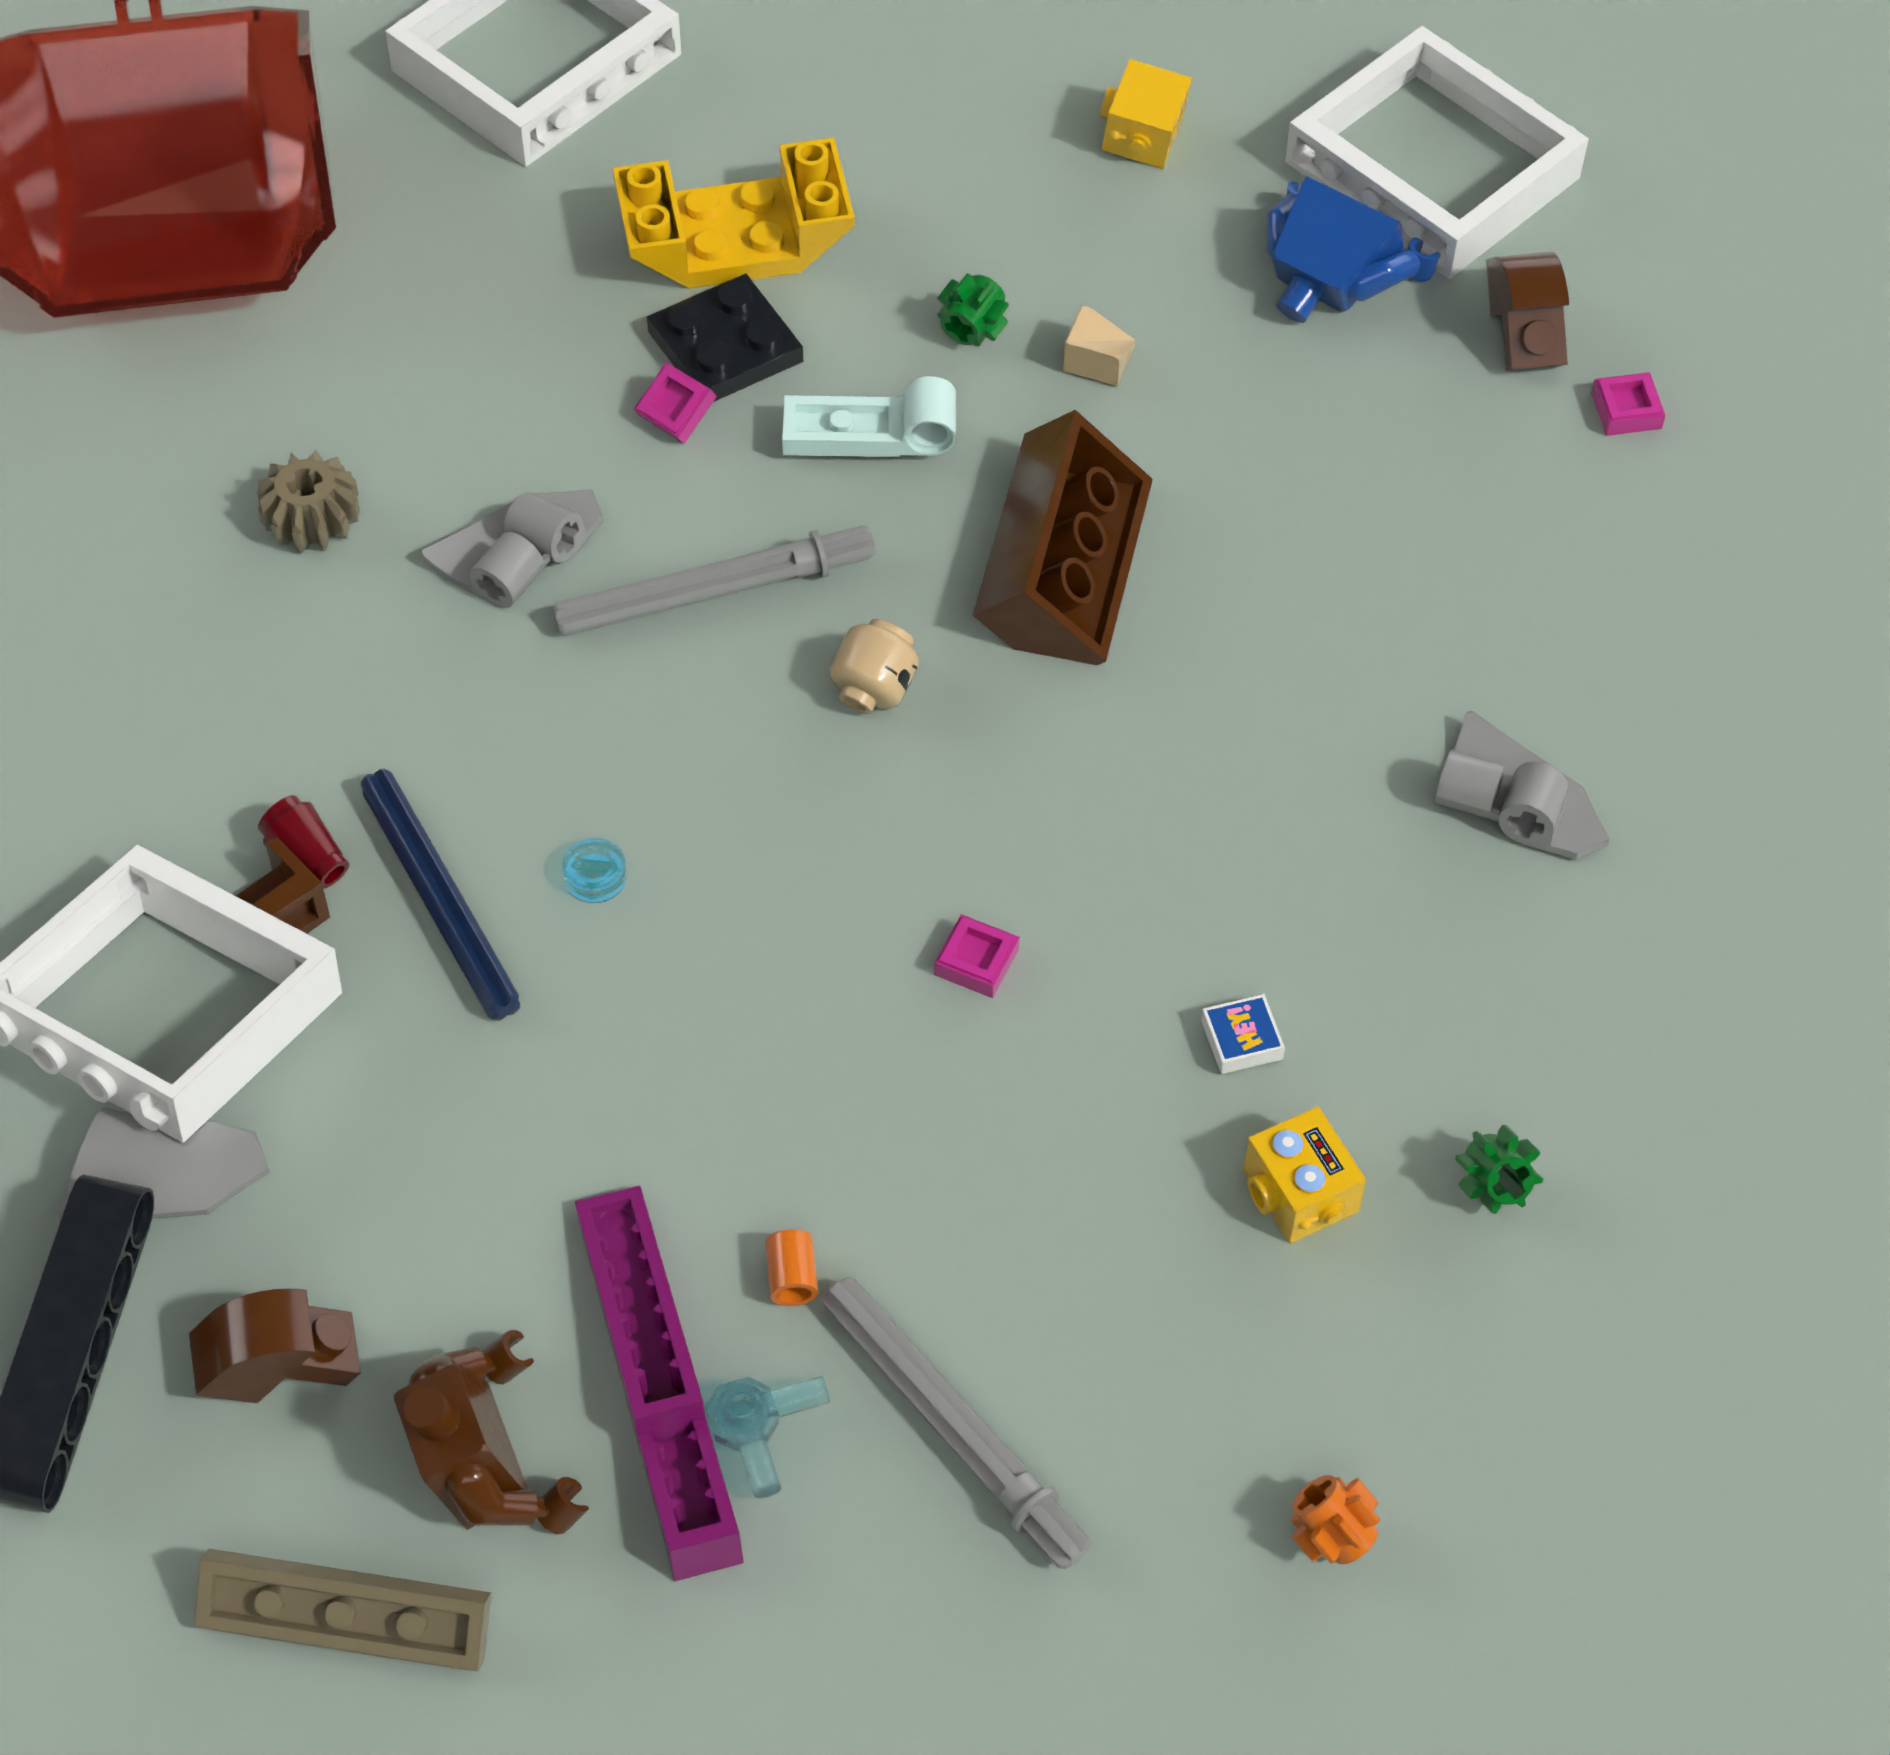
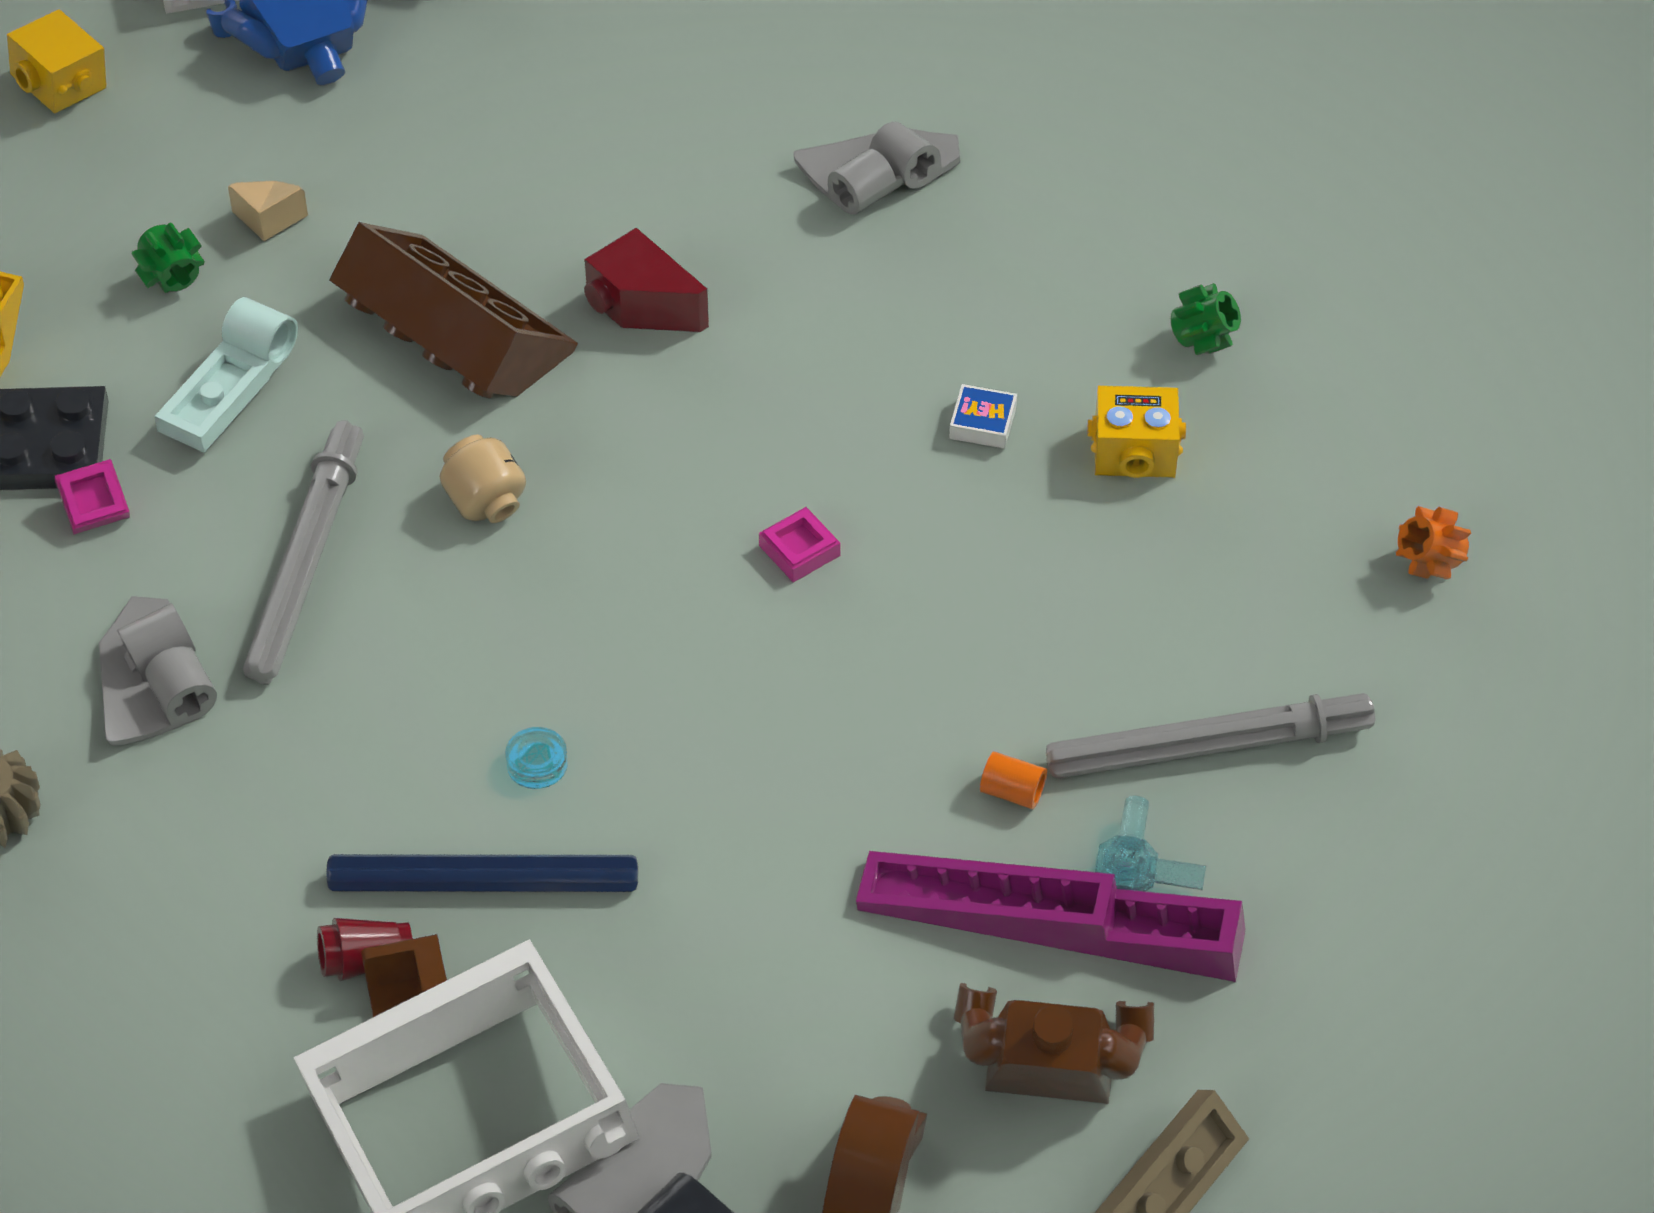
camera: 60 degrees left, 5 degrees down
(1197, 670) = (644, 287): none -> dark red slope

